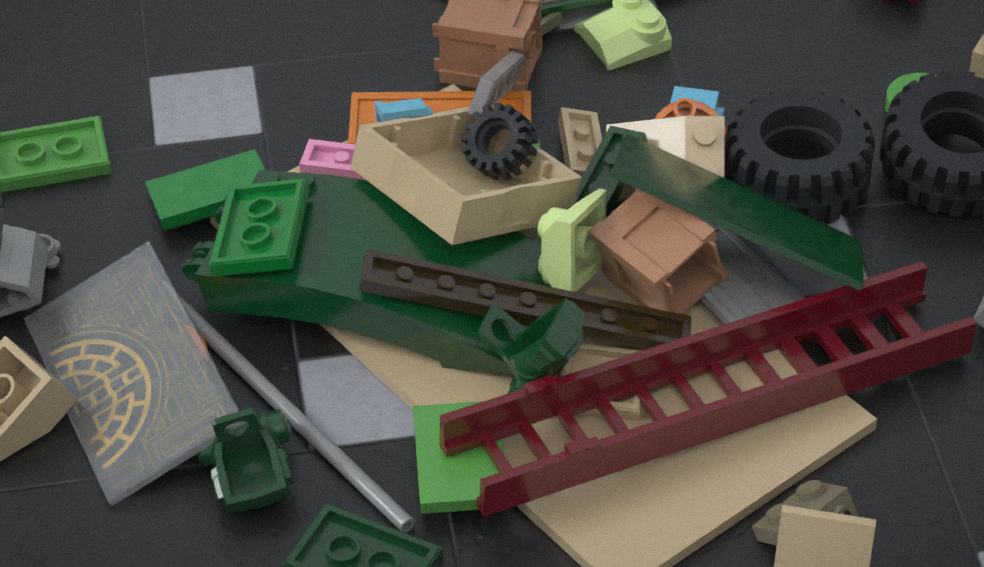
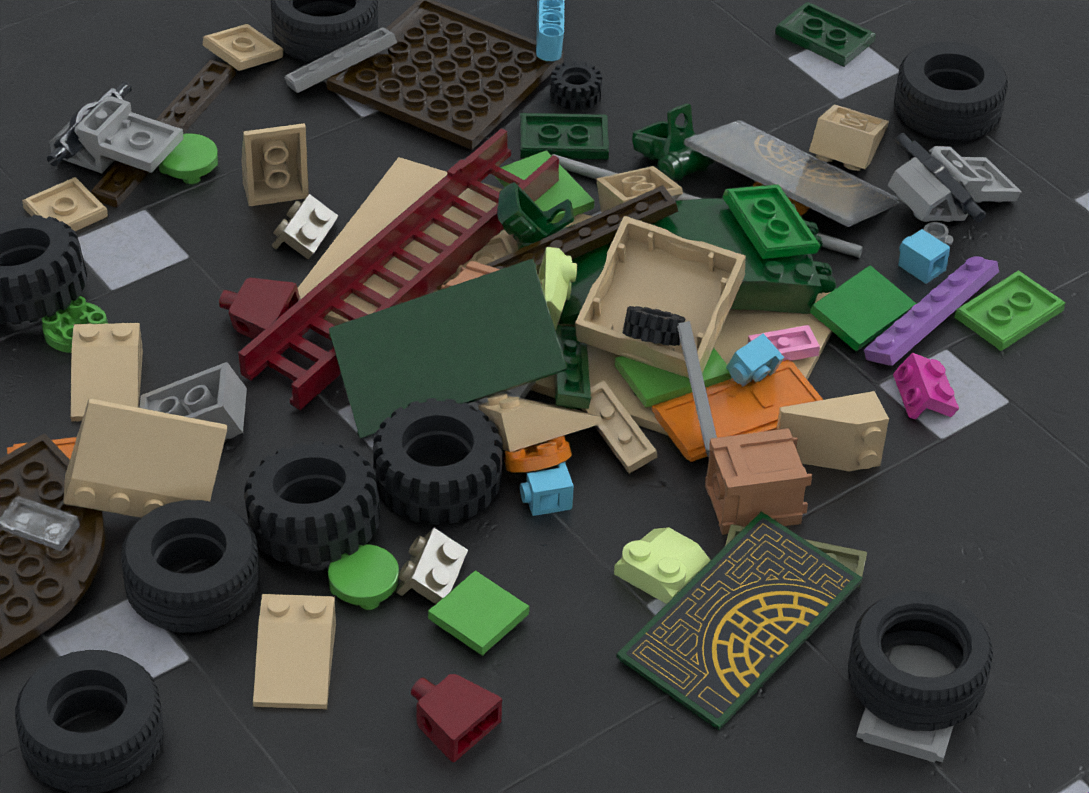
camera: 150 degrees right, 0 degrees up
(83, 223) = (923, 256): none -> medium azure brick
(127, 170) = (931, 311): none -> medium lavender plate
(229, 96) = (924, 386): none -> dark pink bracket
(364, 360) = (625, 186): none -> tan slope
(373, 53) = (838, 431): none -> tan slope
(828, 37) = (478, 612): none -> bright green tile
(858, 82) = (432, 566): none -> bracket
(917, 401) = (258, 304): none -> dark red torso

